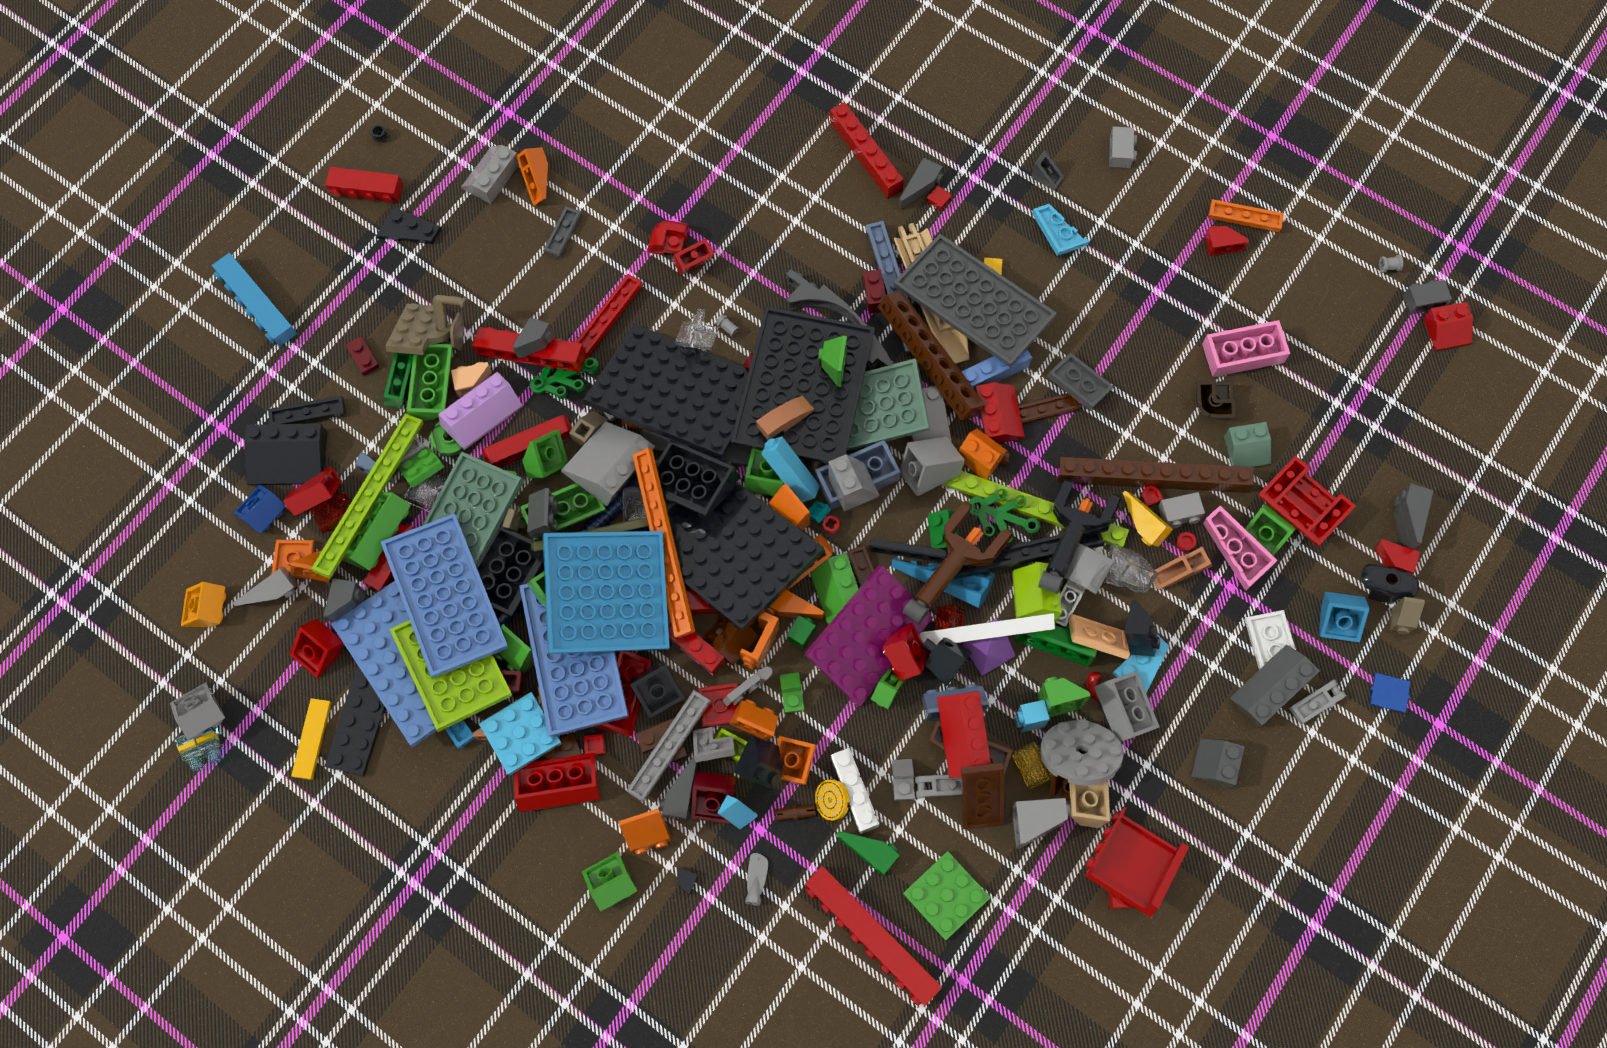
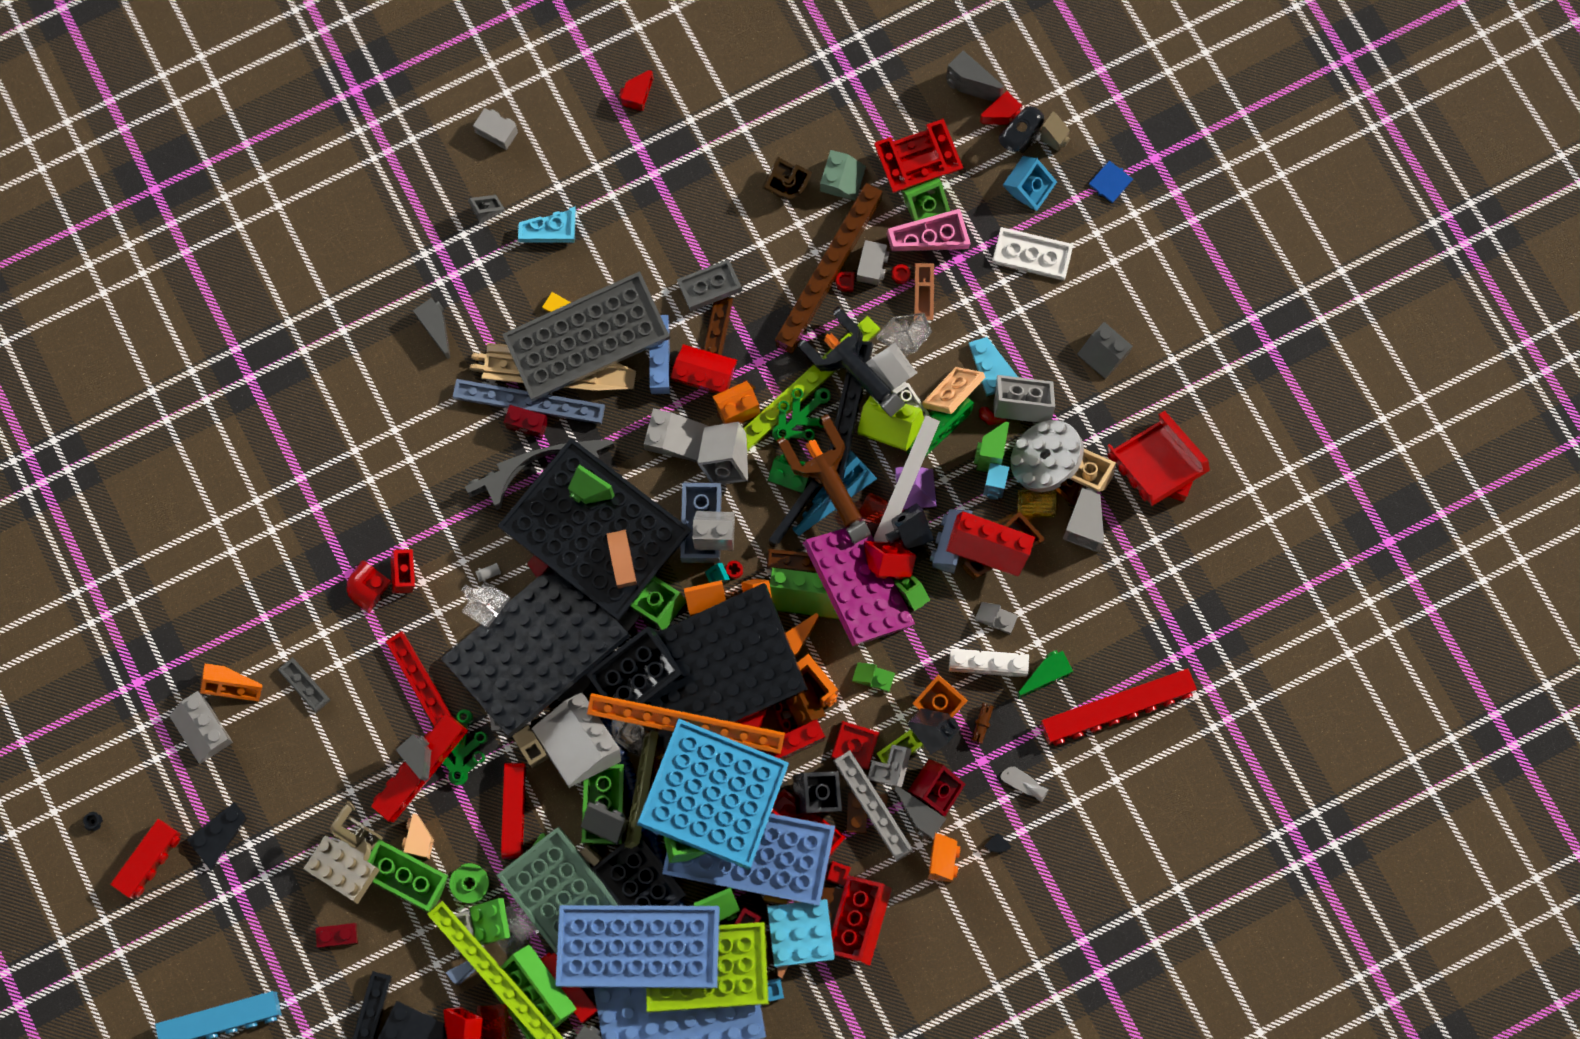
camera: 65 degrees left, 5 degrees up
(398, 380) = (387, 908): green brick -> none
(480, 411) = (461, 841): lavender slope -> none
(545, 455) = (541, 799): bright green slope -> none
(609, 881) = (968, 911): bright green slope -> none
(736, 812) = (961, 772): medium azure slope -> none
(749, 685) = (851, 711): light grey hinge -> none
(754, 719) = (886, 719): orange slope -> none
(790, 469) = (670, 578): medium azure brick -> none
(801, 631) = (823, 642): green brick -> none
(832, 799) = (988, 685): yellow tile -> none
(866, 150) = (372, 358): red brick -> none
(889, 405) = (652, 460): sand green plate -> none
(931, 355) = (620, 401): reddish brown brick -> none
(939, 198) = (457, 317): red tile -> none
(940, 785) = (1018, 587): light grey plate -> none
(946, 895) = (1112, 629): bright green plate -> none
(982, 795) = (1047, 555): reddish brown plate -> none
(1141, 632) = (967, 352): black slope -> none
(1147, 523) = (871, 296): yellow slope -> none
(1246, 215) = (622, 59): orange plate -> none
(1246, 348) = (752, 129): bright pink brick -> none
(1274, 685) = (1062, 270): dark grey slope -> none
(1317, 702) = (1092, 243): light grey plate -> none

